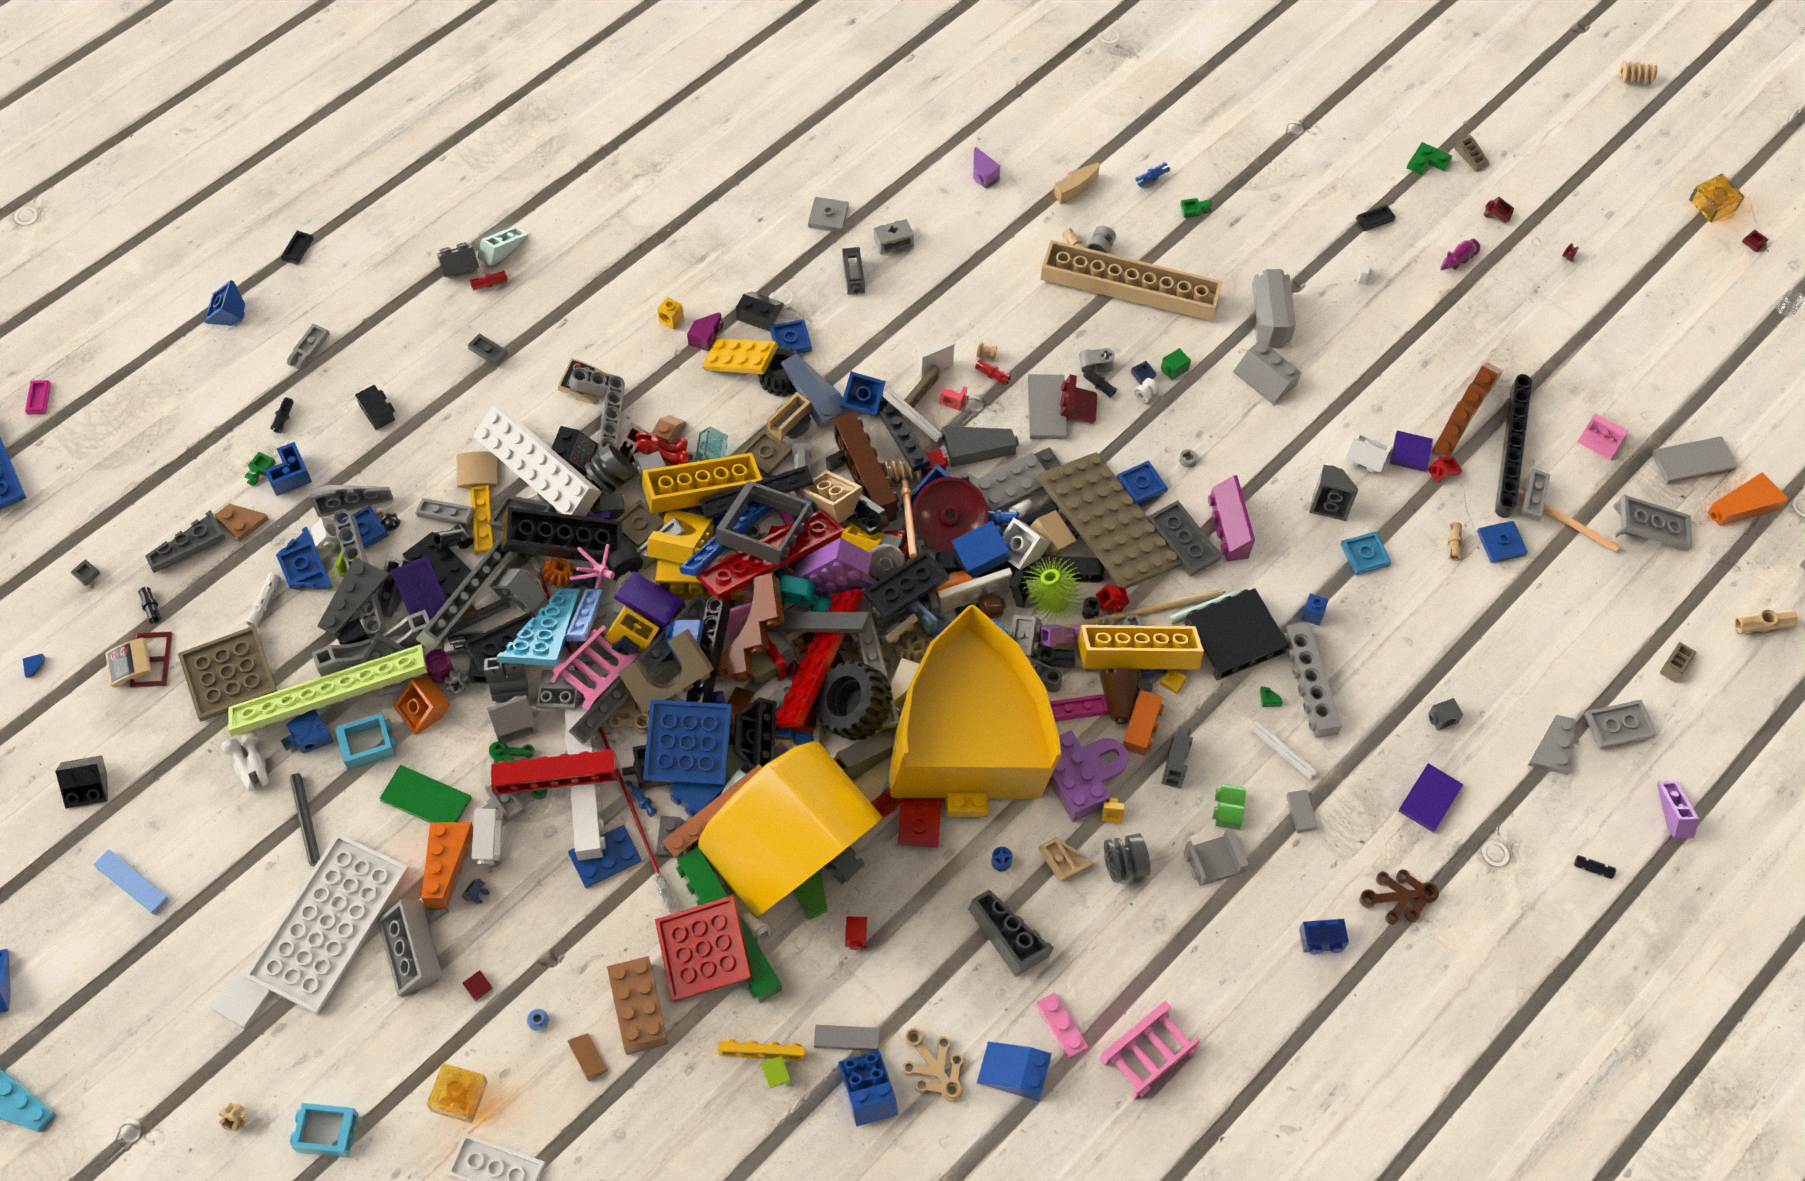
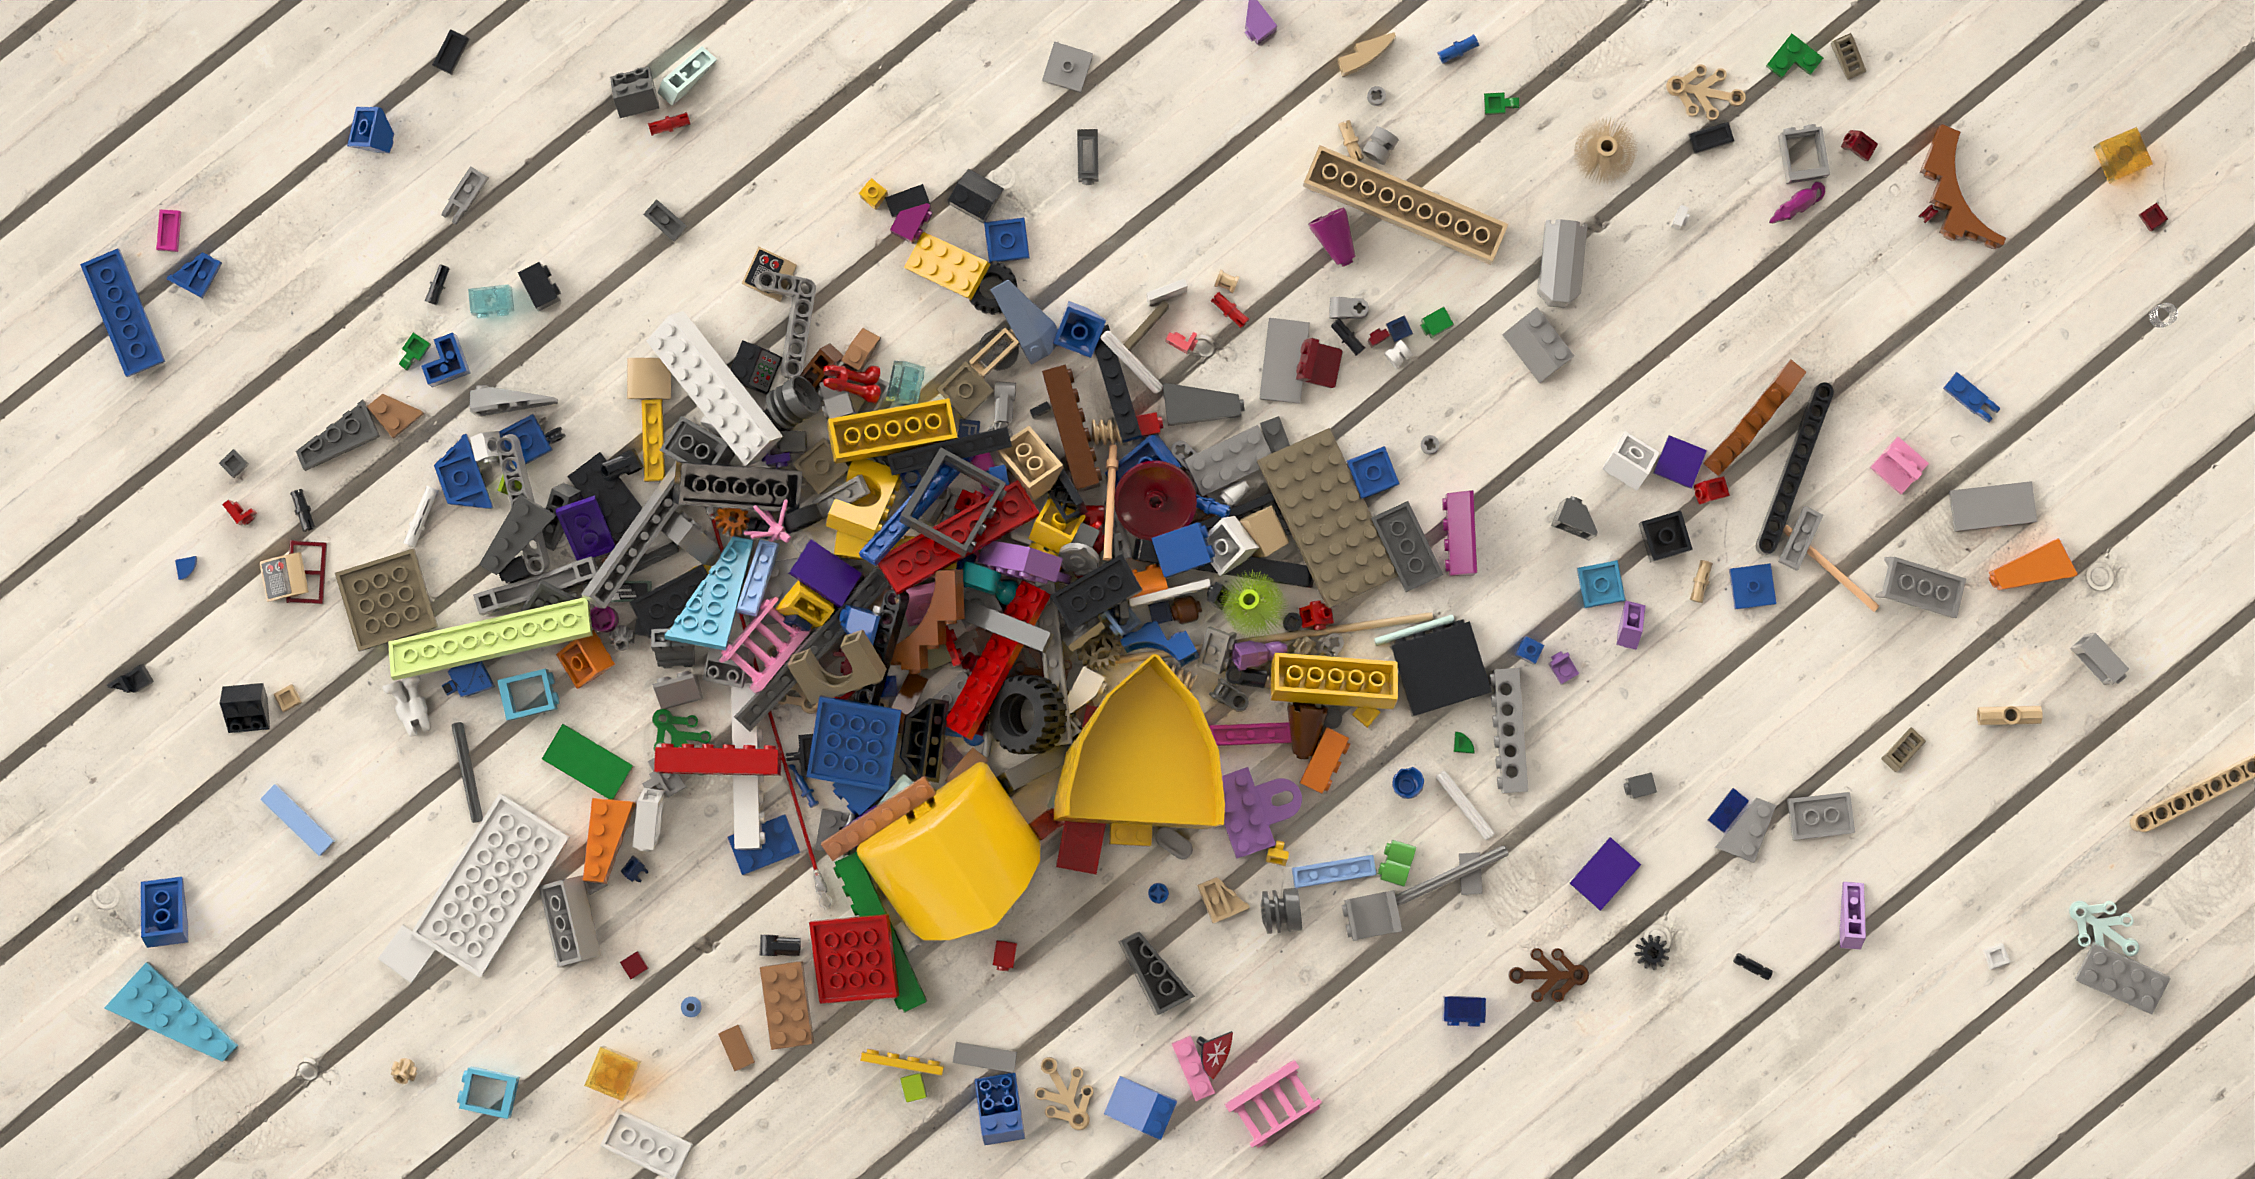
camera: 10 degrees right, 25 degrees up
(61, 427) = (197, 275): none -> blue wing
(89, 614) = (235, 511): none -> red bracket
(126, 770) = (287, 698): none -> tan tile
(331, 421) = (480, 296): none -> clear light blue brick
(445, 511) = (613, 428): light grey tile -> none
(620, 948) = (774, 945): none -> black piece
(672, 676) = (845, 667): none -> dark red bracket
(689, 318) = (907, 199): none -> black tile
(893, 236) = (1150, 113): light grey brick -> none
(1009, 813) = (1174, 843): none -> light grey tile
(1074, 306) = (1335, 235): none -> magenta cone
(1082, 1004) = (1215, 1053): none -> red shield
(1091, 216) = (1377, 102): none -> light grey bush
(1126, 379) = (1377, 337): none -> dark red plate
(1171, 822) = (1334, 871): none -> light blue tile
(1178, 753) = (1351, 805): dark grey hips -> none
(1226, 733) = (1408, 783): none -> blue hair
(1286, 810) = (1451, 875): none -> light grey axle
(1291, 225) = (1609, 143): none -> tan piece
(1342, 185) = (1702, 91): none -> tan plant
(1347, 622) = (1563, 667): none -> medium lavender bracket
(1402, 582) = (1631, 625): none -> medium lavender slope
(1415, 504) = (1665, 536): none -> black brick
(1459, 233) = (1810, 174): none -> light grey window
(1494, 862) = (1648, 958): none -> black gear
(1531, 730) = (1728, 810): none -> clear blue plate
(1597, 251) = (1959, 219): none -> dark orange arch
(1649, 380) = (1970, 396): none -> blue hinge

